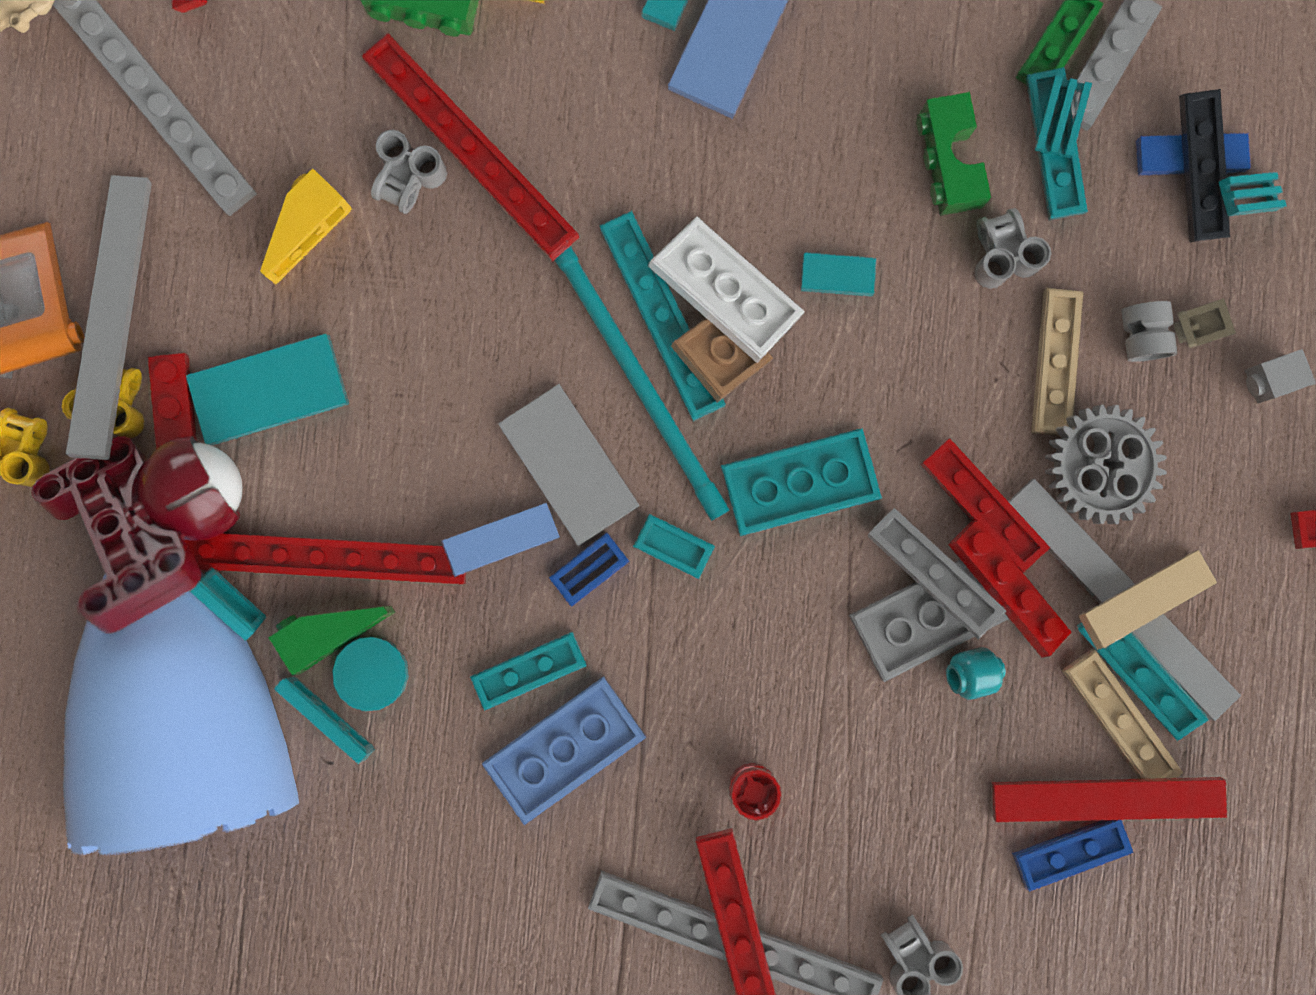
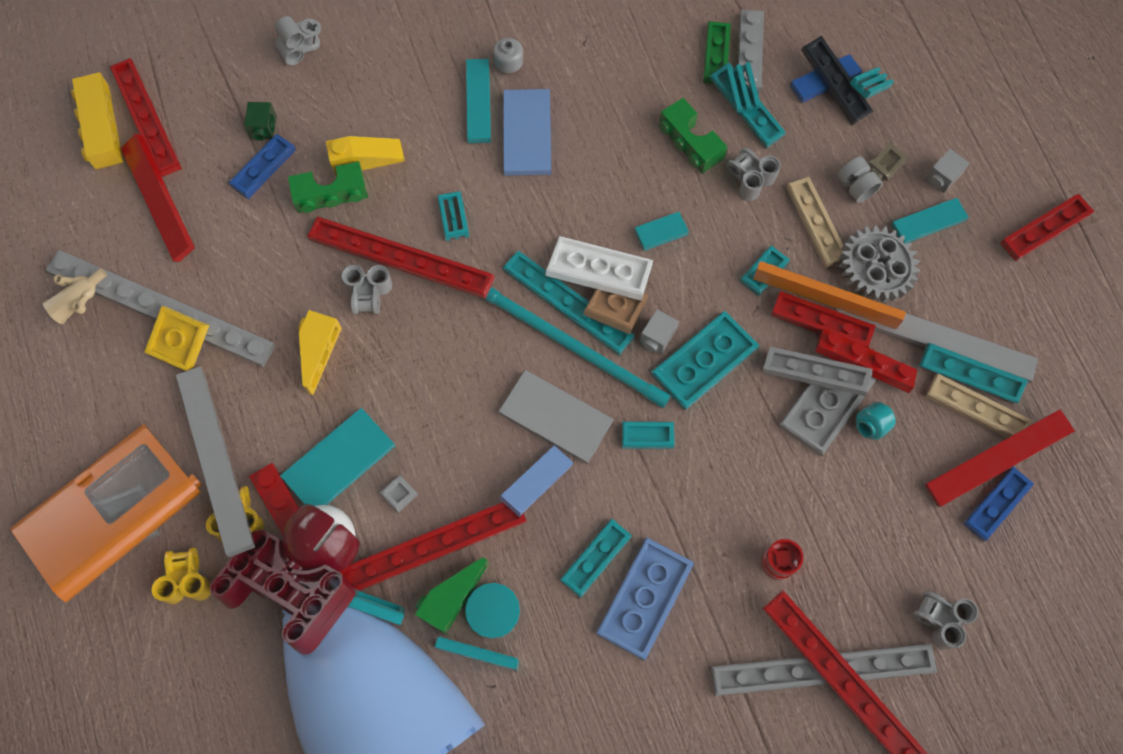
camera: 25 degrees left, 15 degrees down
(131, 124) = (176, 338): none -> yellow tile
(324, 469) = (399, 493): none -> light grey tile
(563, 146) = (456, 233): none -> teal tile
(564, 588) = (592, 494): blue tile -> none
(757, 417) = (658, 332): none -> light grey brick
(947, 397) = (770, 256): none -> teal tile
(1010, 478) = (829, 295): none -> orange tile
(1147, 599) = (950, 327): tan tile -> none
(1213, 435) = (930, 220): none -> teal tile

